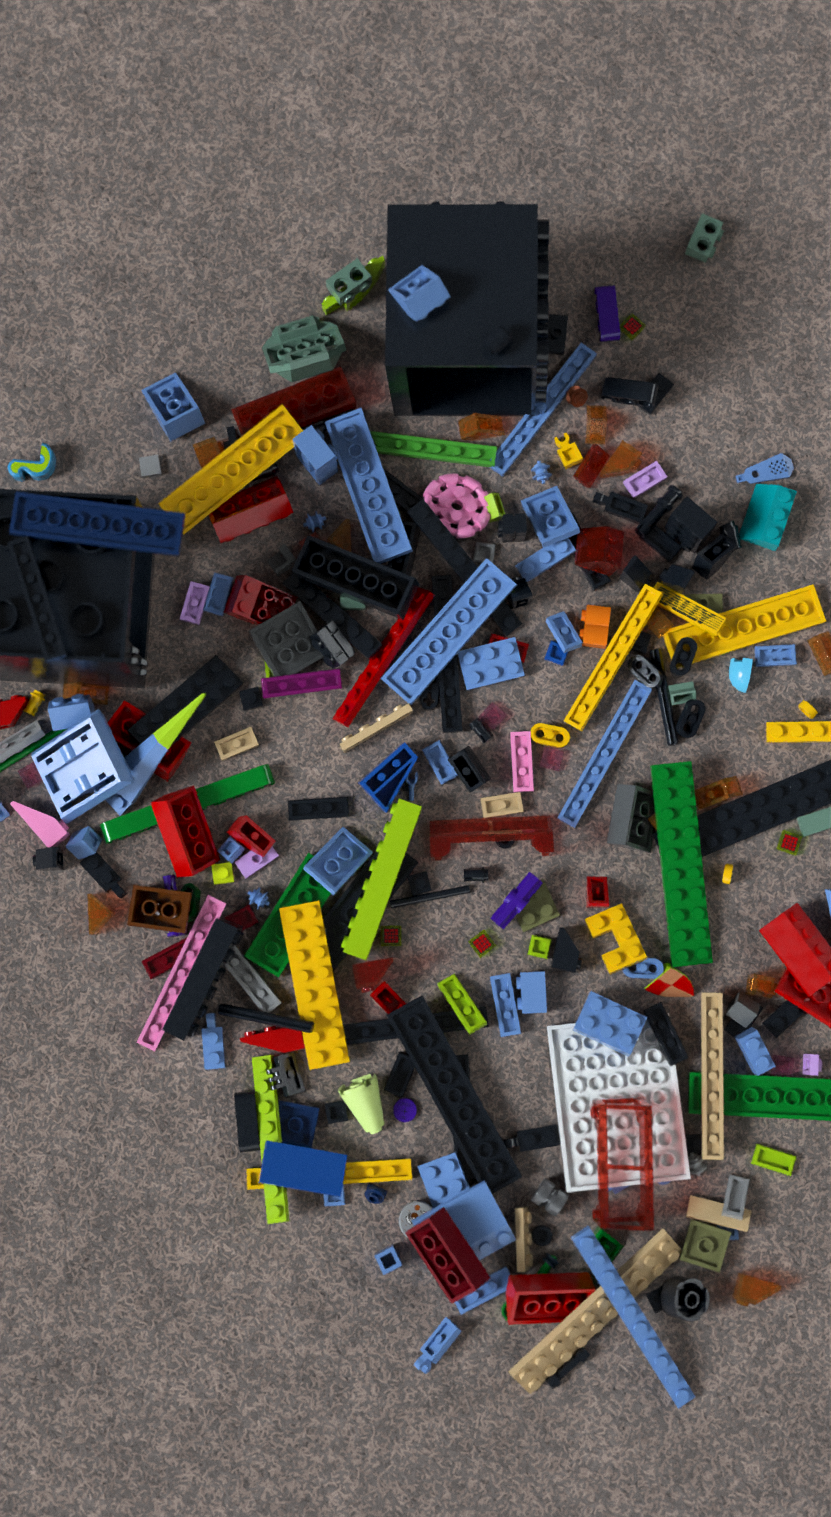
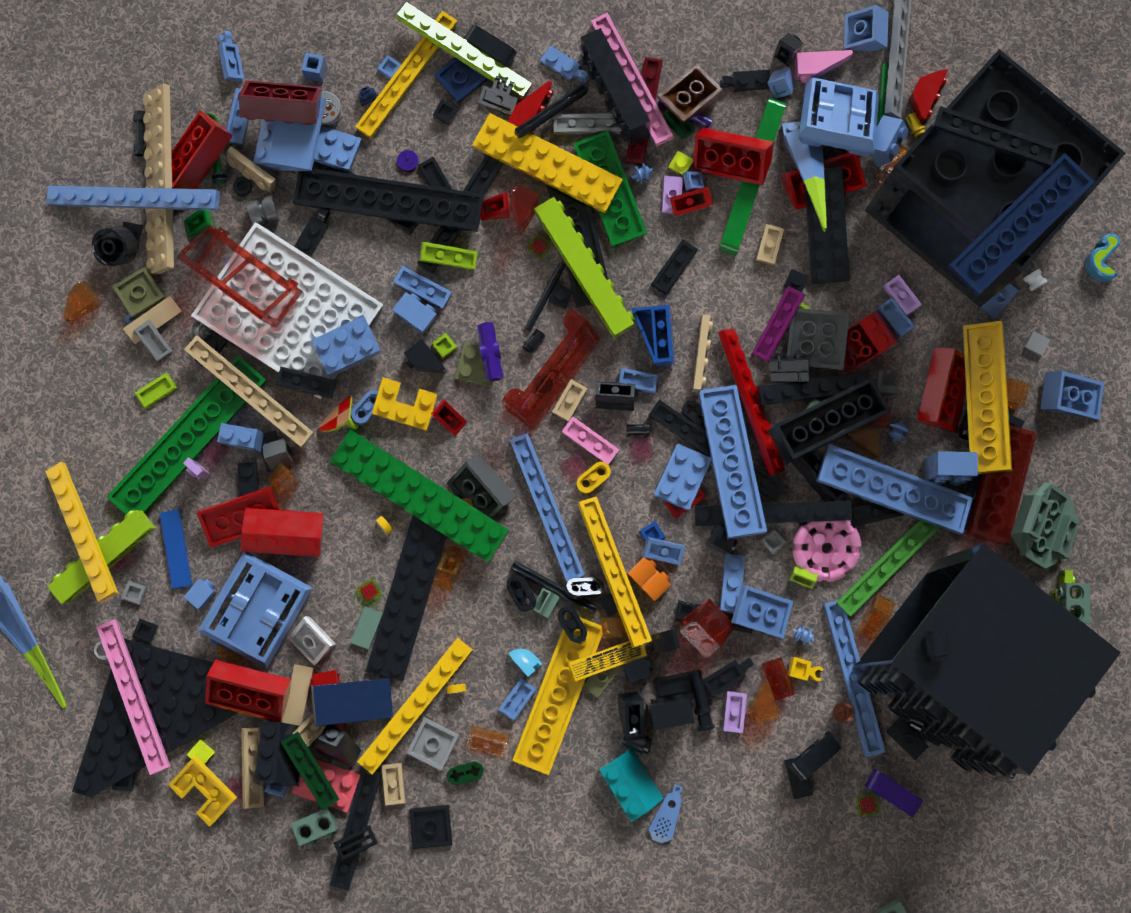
camera: 125 degrees right, 0 degrees up
(30, 775) = (862, 81): clear pink tile -> none
(98, 914) = (721, 54): clear orange slope -> none
(303, 1168) = (424, 54): blue tile -> none
(338, 860) = (623, 248): medium blue plate -> none
(364, 1102) = (436, 134): yellowish green cone -> none
(411, 786) = (642, 347): medium blue hand -> none
(419, 293) = (1024, 615): medium blue slope -> none
(481, 943) = (480, 306): tile -> none
(512, 528) = (775, 574): black brick -> none
(596, 424) = (809, 710): clear orange slope -> none

